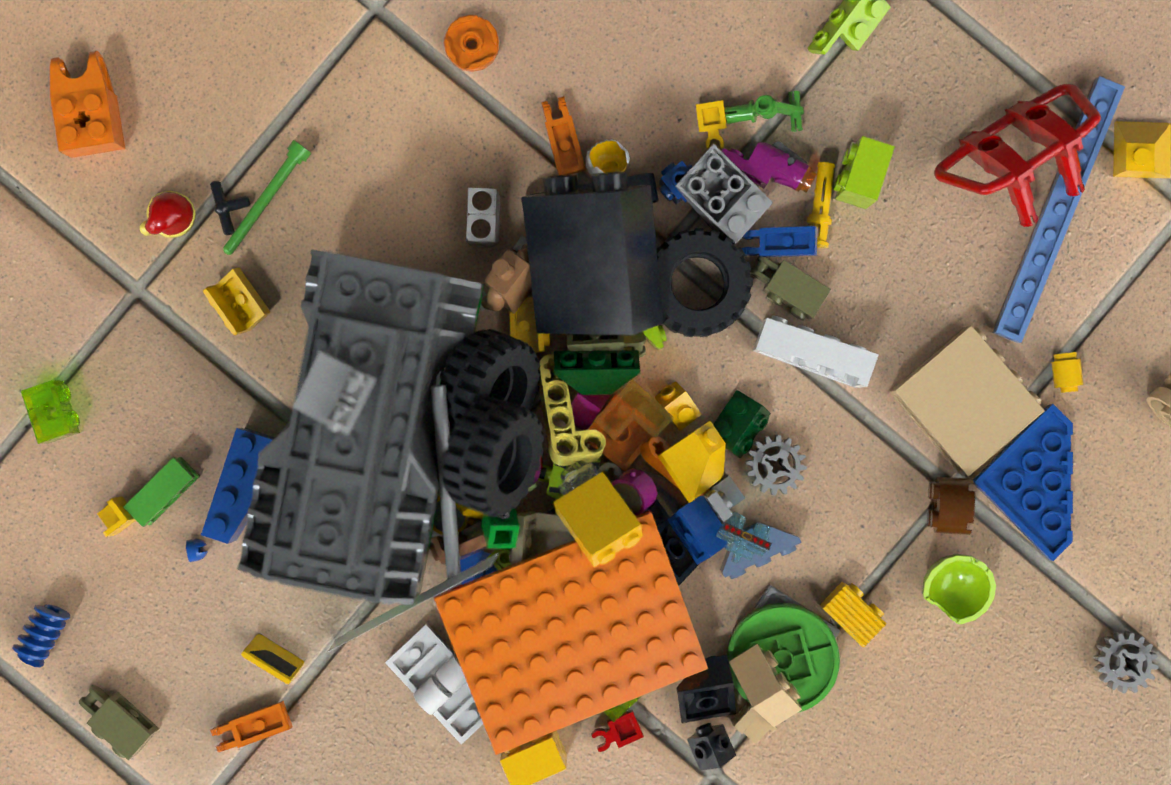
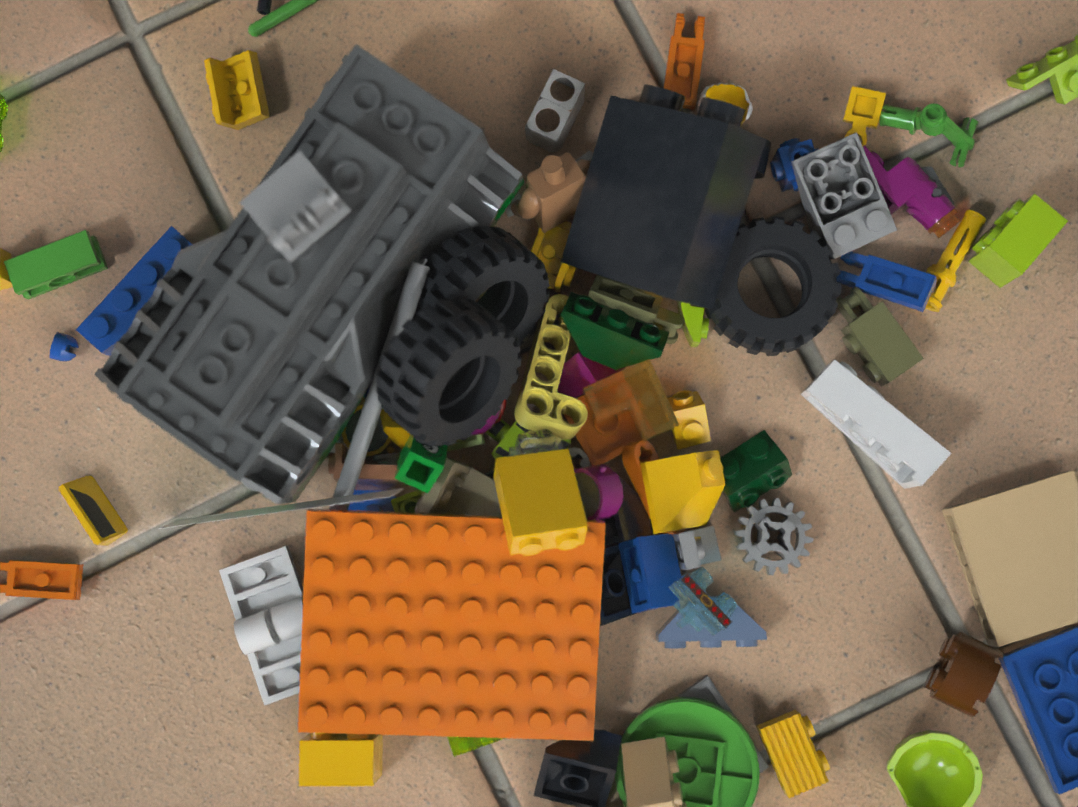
camera: 25 degrees right, 5 degrees down
(623, 731) = (460, 772): red plate -> none

